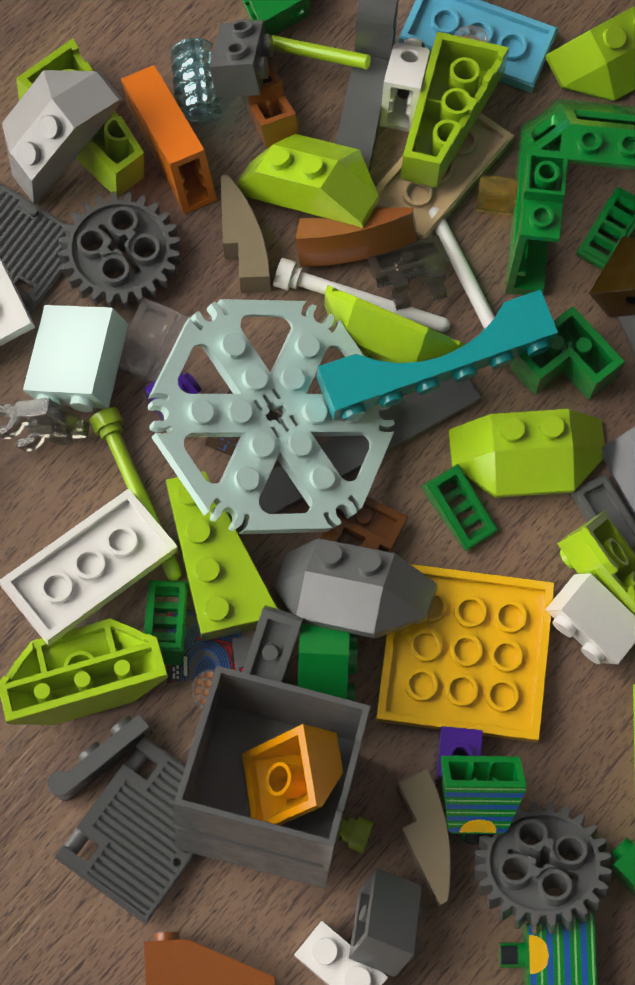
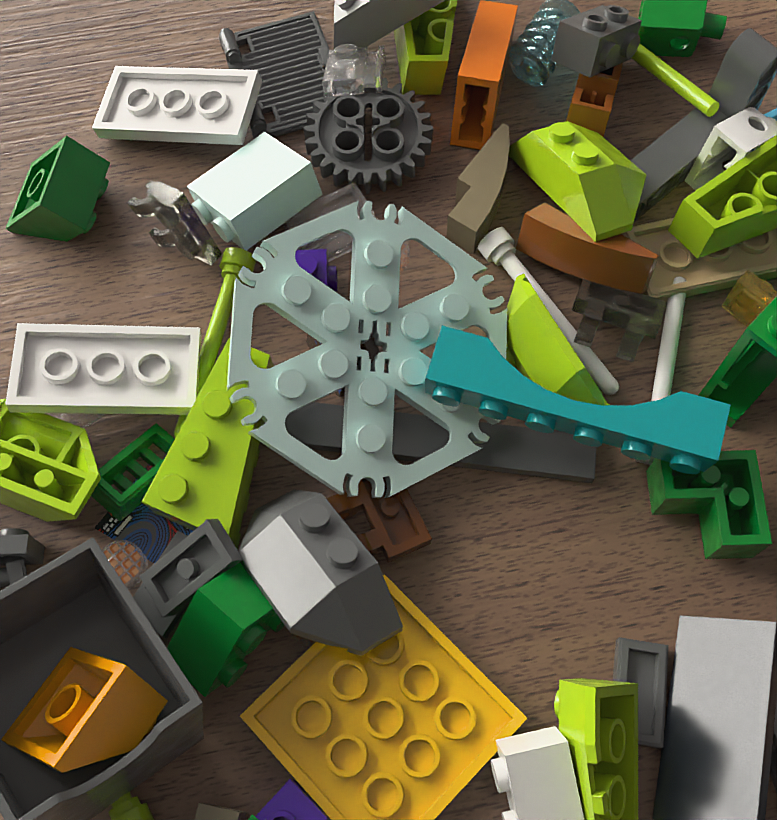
camera: 40 degrees right, 5 degrees down
(71, 206) = (352, 70): none -> clear plate
(448, 514) = (511, 532): green slope -> none
(528, 451) = (605, 566): lime wedge -> none

